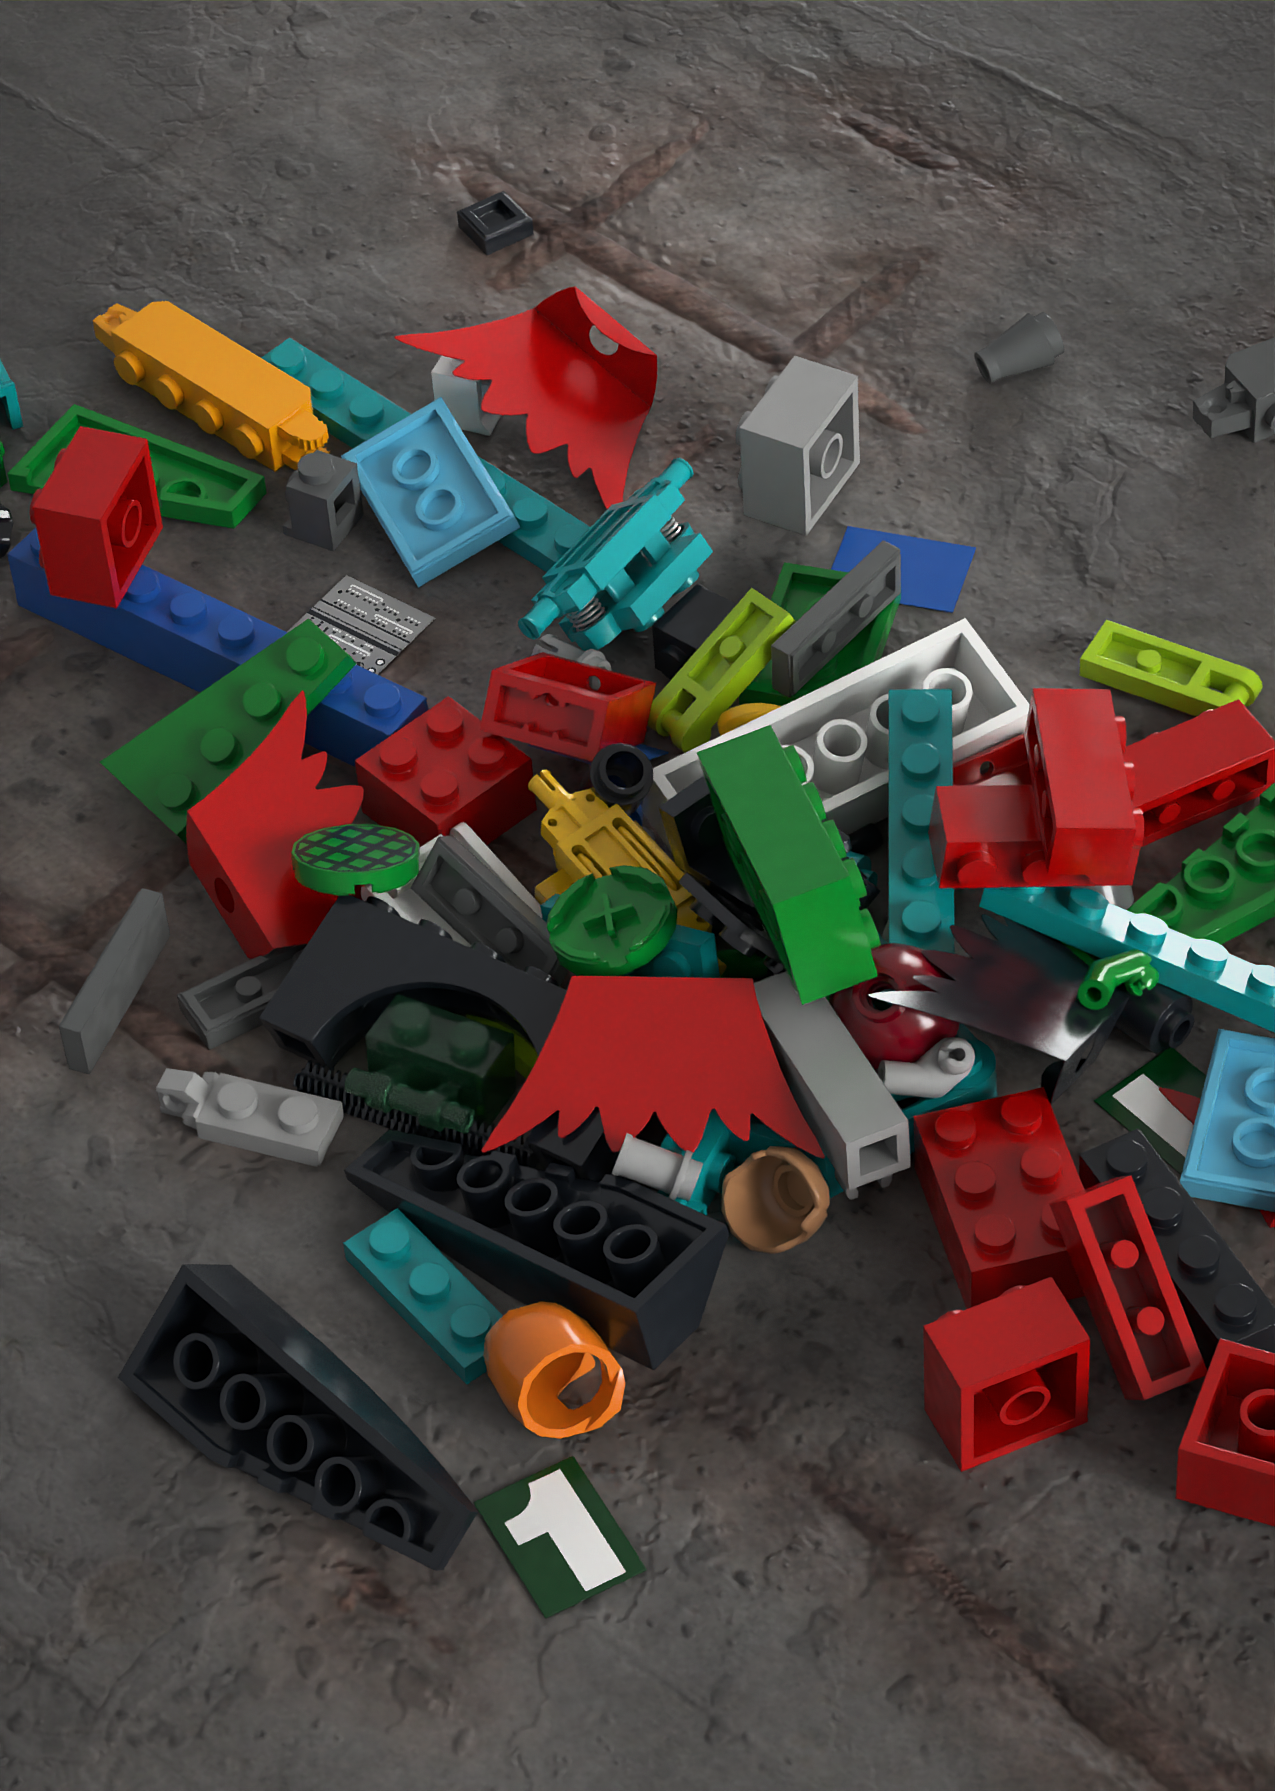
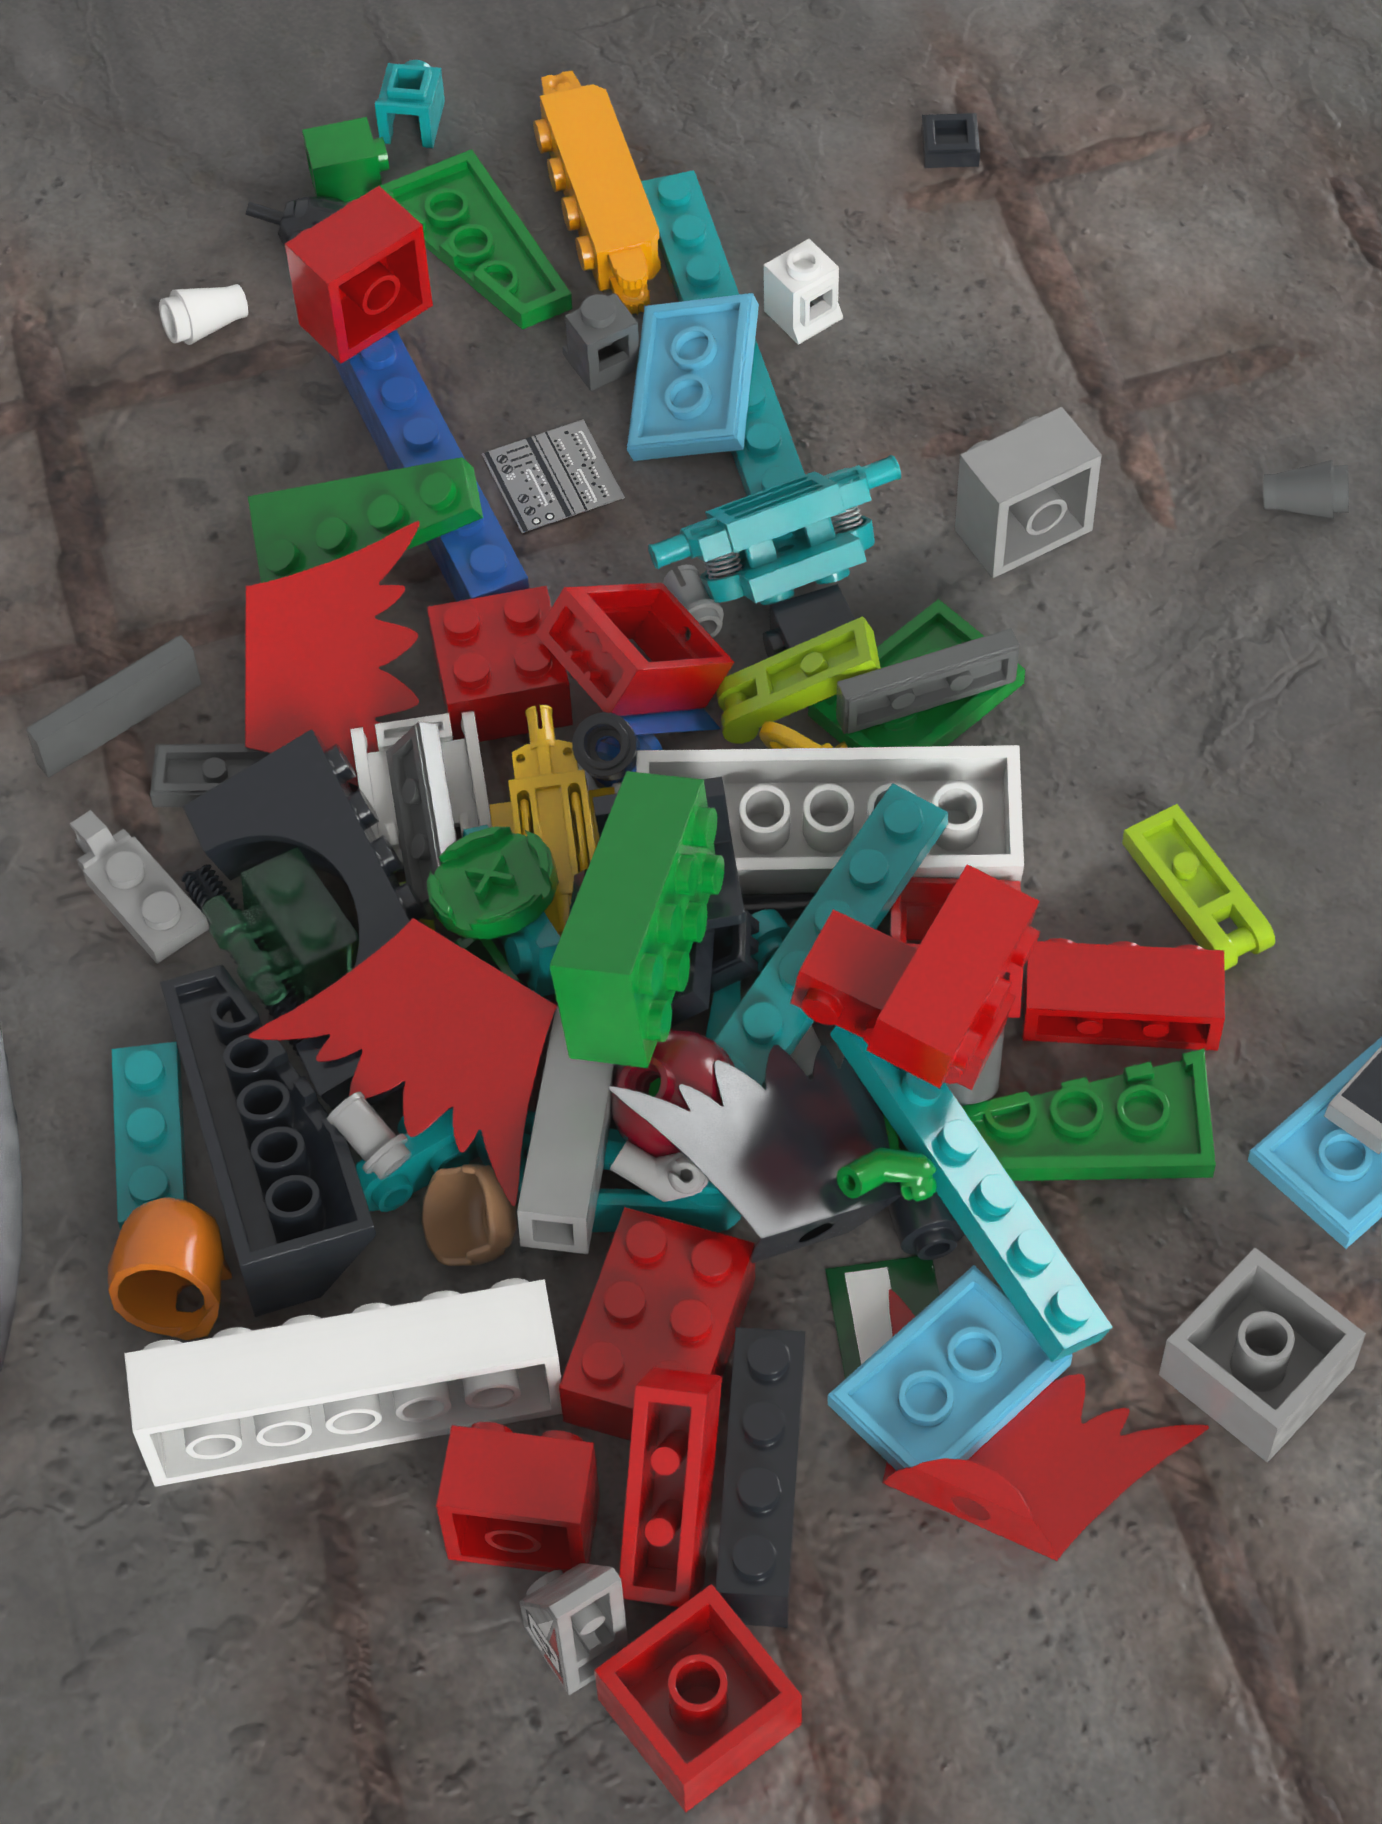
camera: 30 degrees right, 10 degrees up
(353, 855) = (350, 702): green tile -> none
(555, 375) = (871, 328): red piece -> none
(559, 1536) = (82, 1424): sticker -> none
(781, 1368) = (344, 1381): none -> white brick
(929, 568) = (1059, 655): blue sticker -> none
(1126, 1429) = (576, 1621): none -> light grey slope

